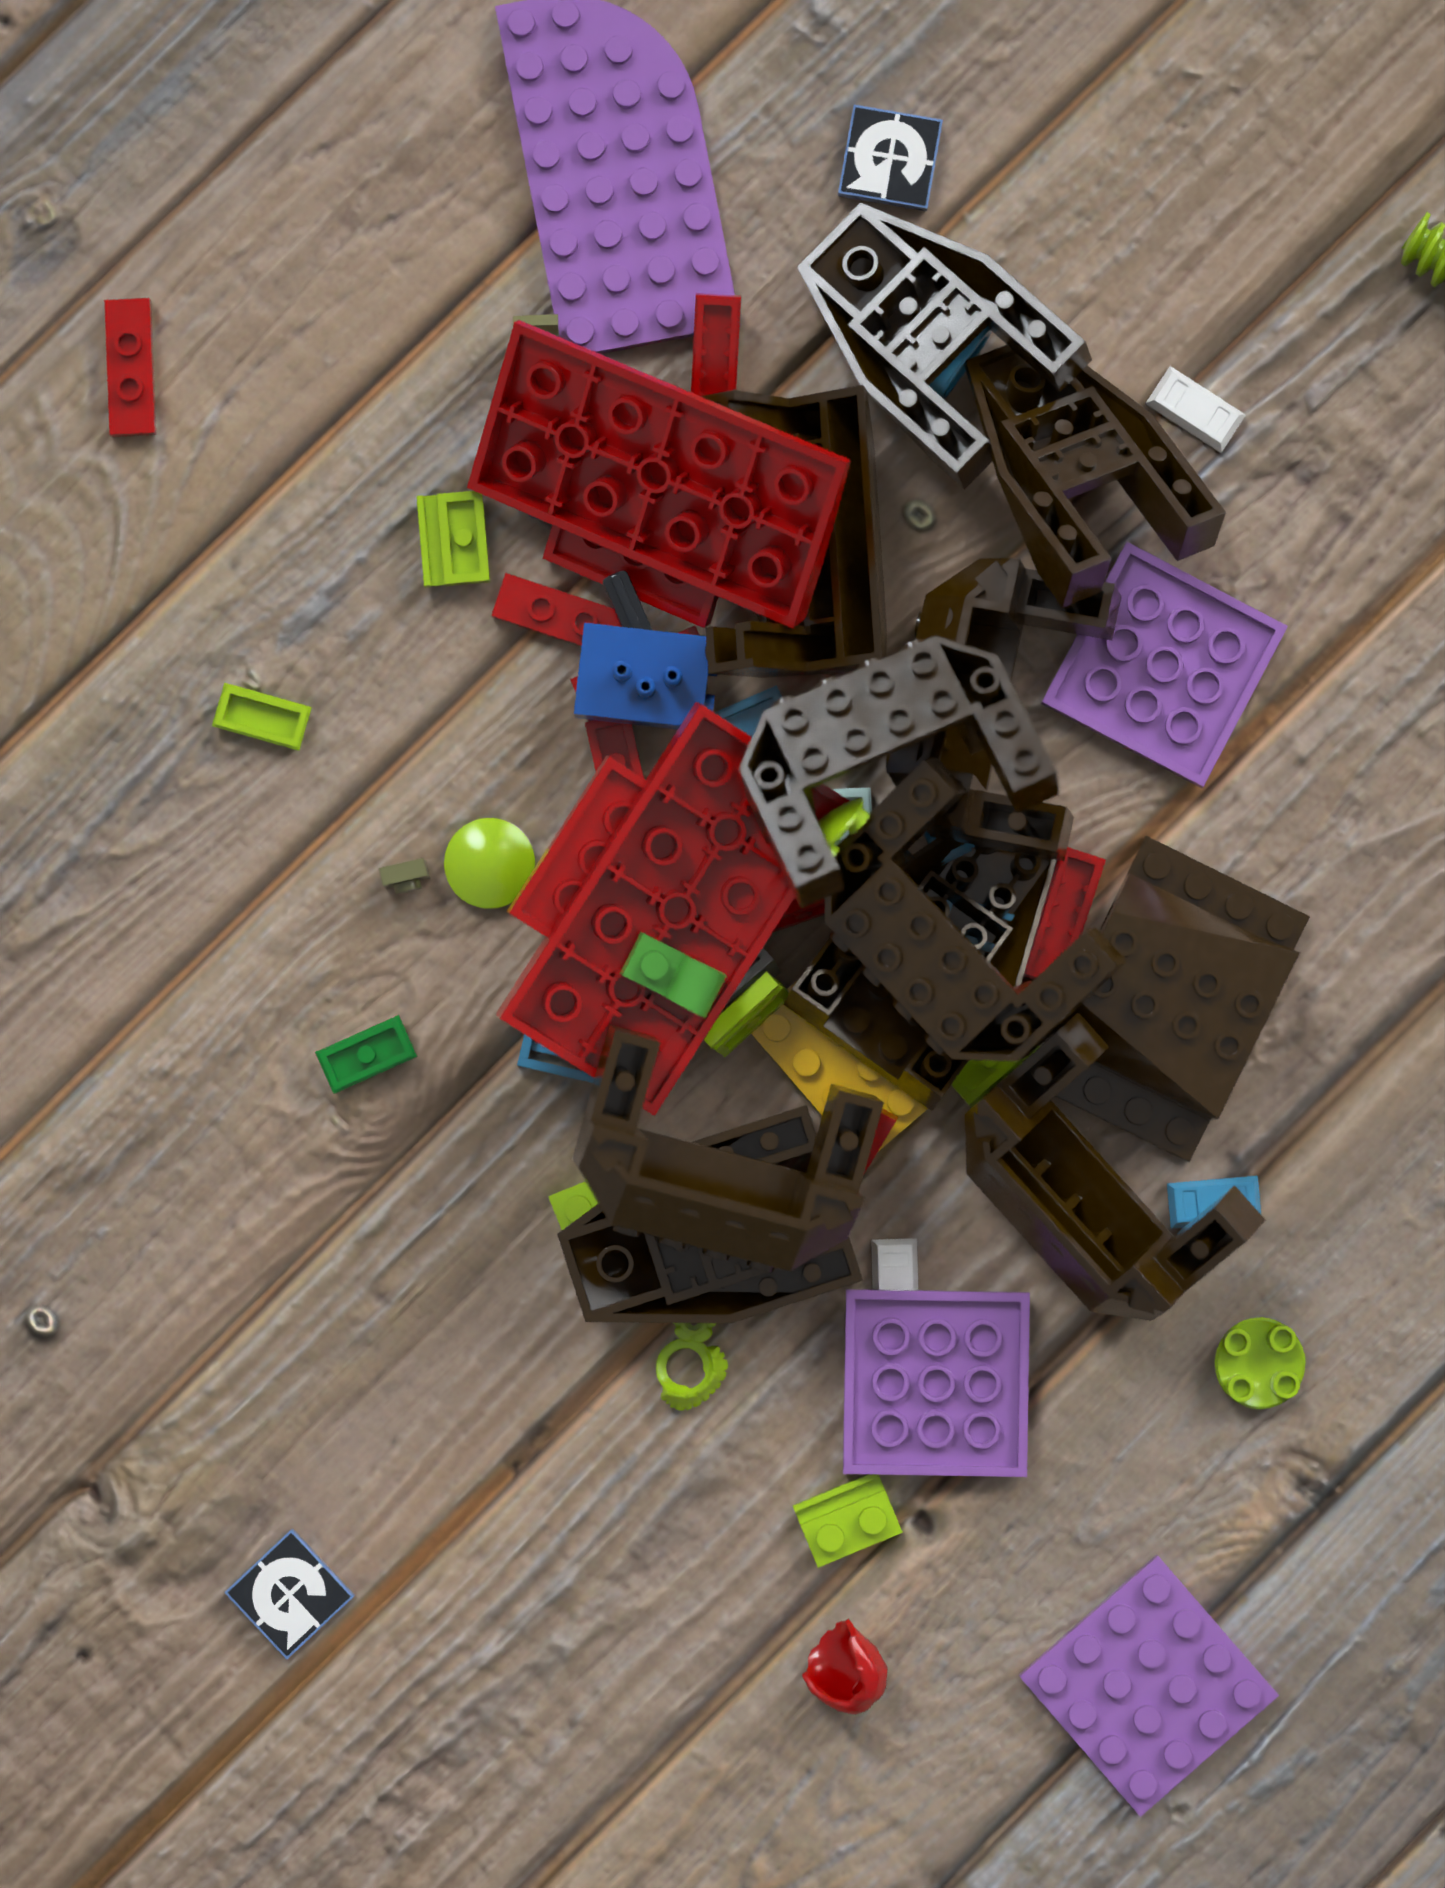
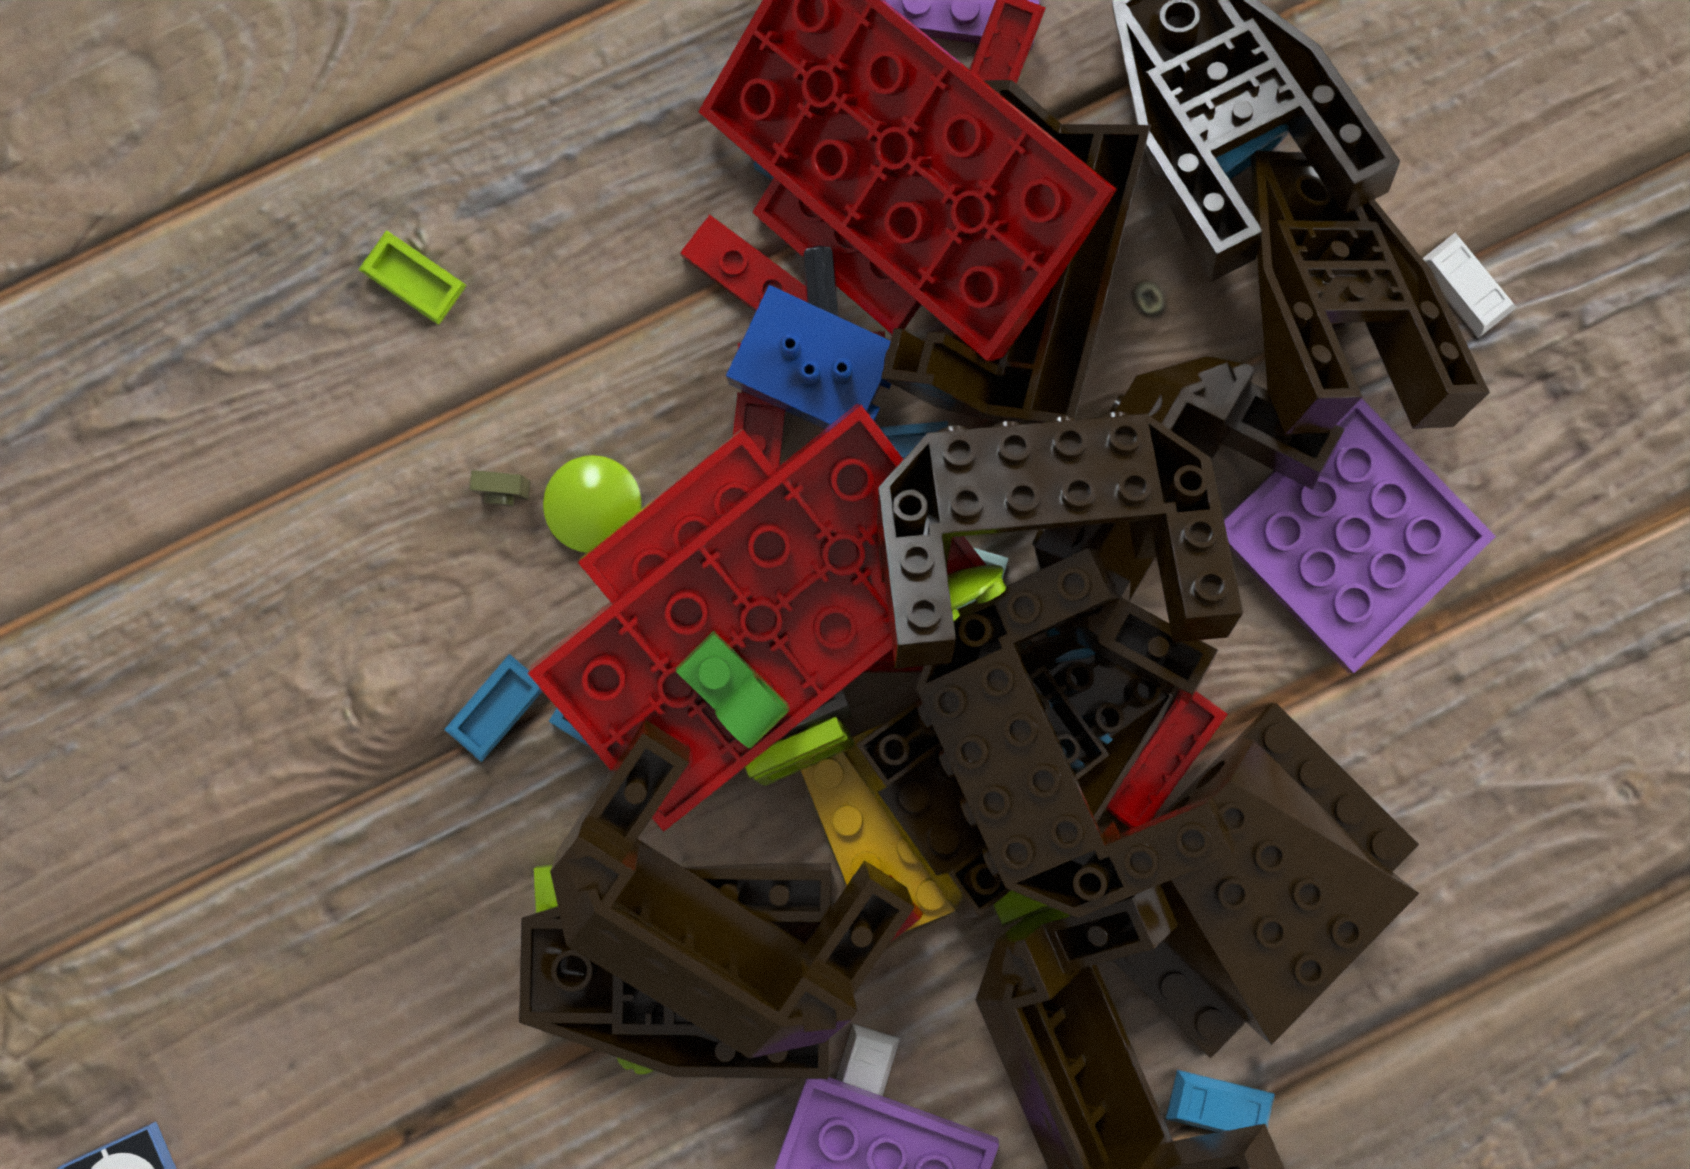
camera: 15 degrees right, 0 degrees up
(366, 1054) = (397, 658): green plate -> none
(453, 539) = (668, 162): lime plate -> none
(466, 1069) = (494, 708): none -> dark azure tile
(681, 1396) = (600, 1122): lime piece -> none

